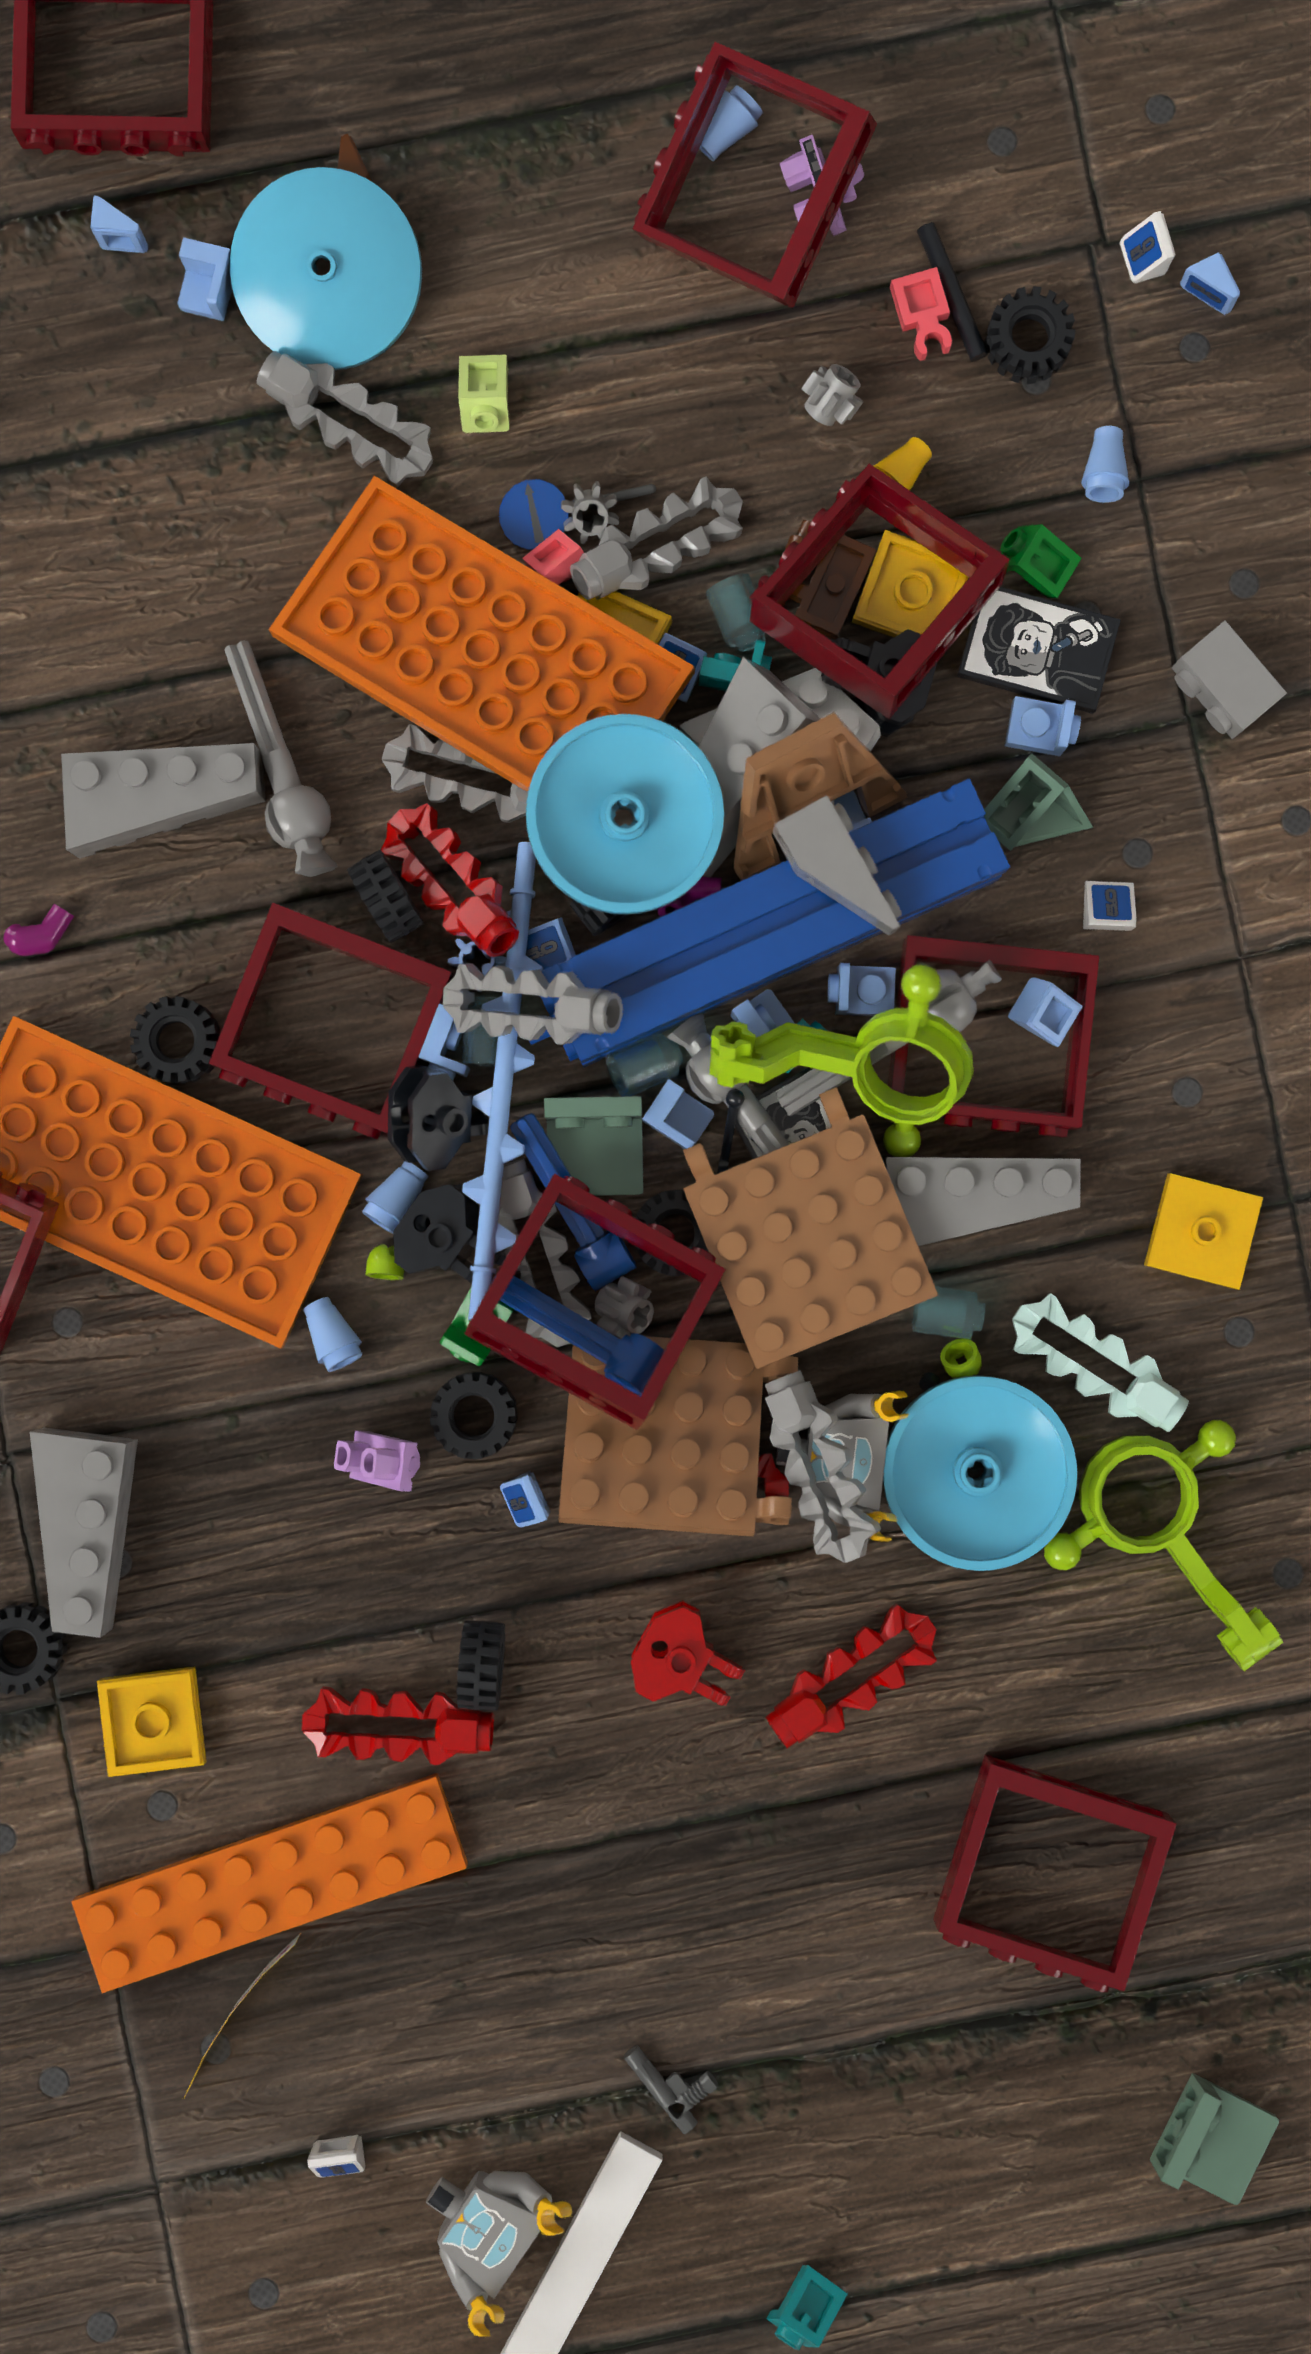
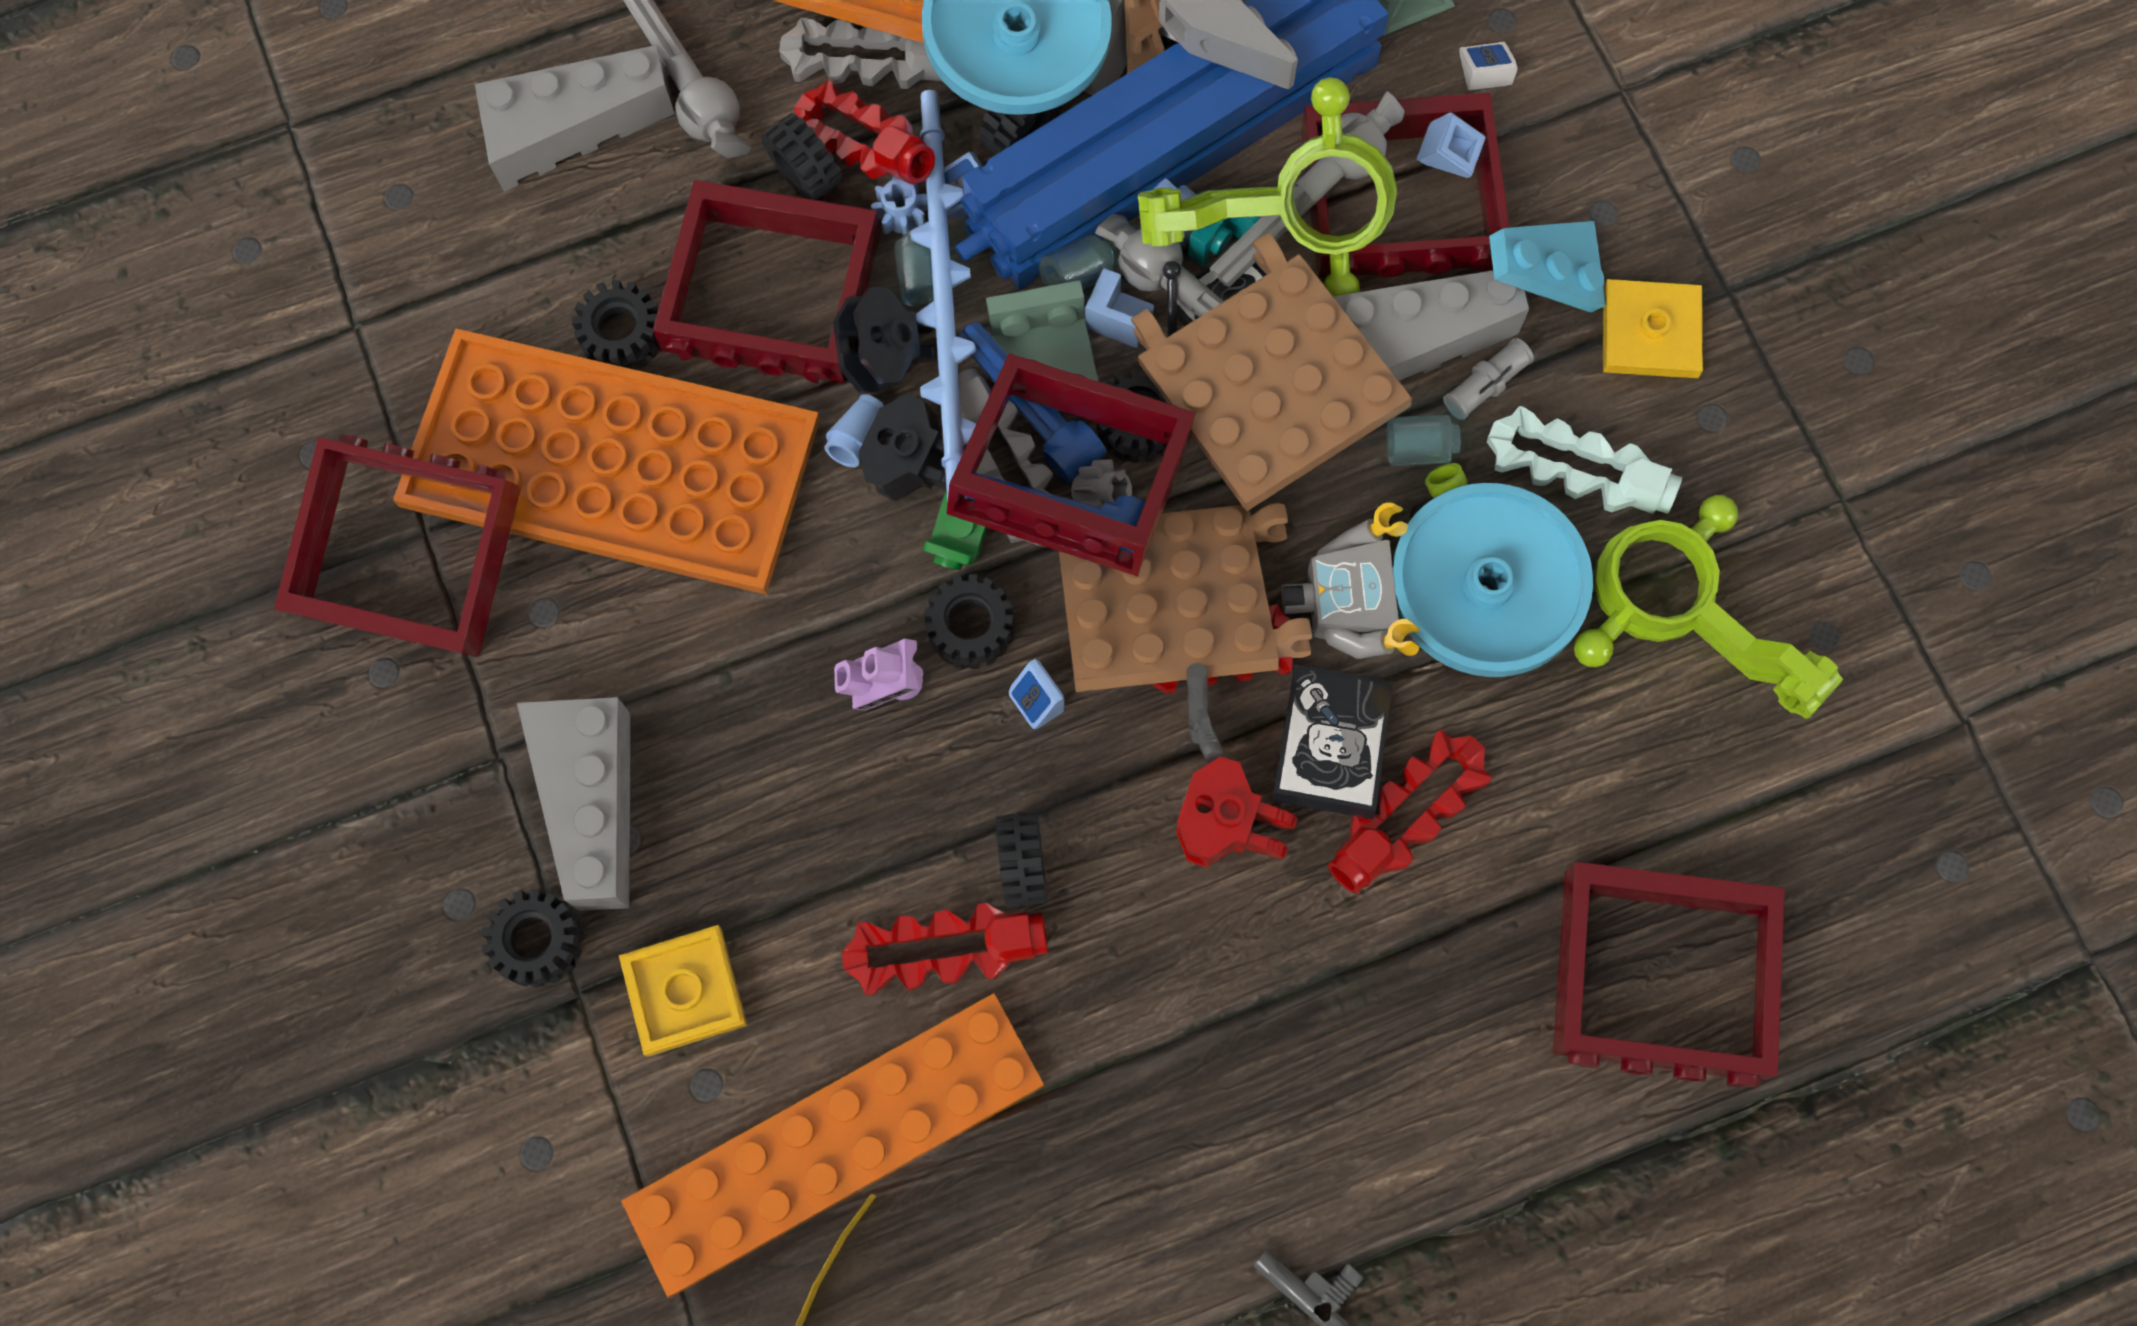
camera: 10 degrees left, 15 degrees down
(38, 938) = (472, 261): magenta arm -> none
(331, 1335) = (813, 571): light blue cone -> none
(382, 1264) = (856, 497): lime hinge -> none
(440, 1037) = (880, 271): light blue bracket -> none
(576, 1011) = (1005, 190): light grey sword -> none
(673, 1564) = (1199, 722): none -> dark grey hose
(792, 1605) = (1333, 741): none -> tile
(793, 1410) = (1297, 545): light grey sword -> none
(862, 989) = (1262, 167): light blue bracket -> none
(1028, 1256) = (1488, 378): none -> light grey pin
(1117, 1154) = (1551, 262): none -> medium azure wing
(1213, 2140) = (1917, 1233): sand green bracket -> none

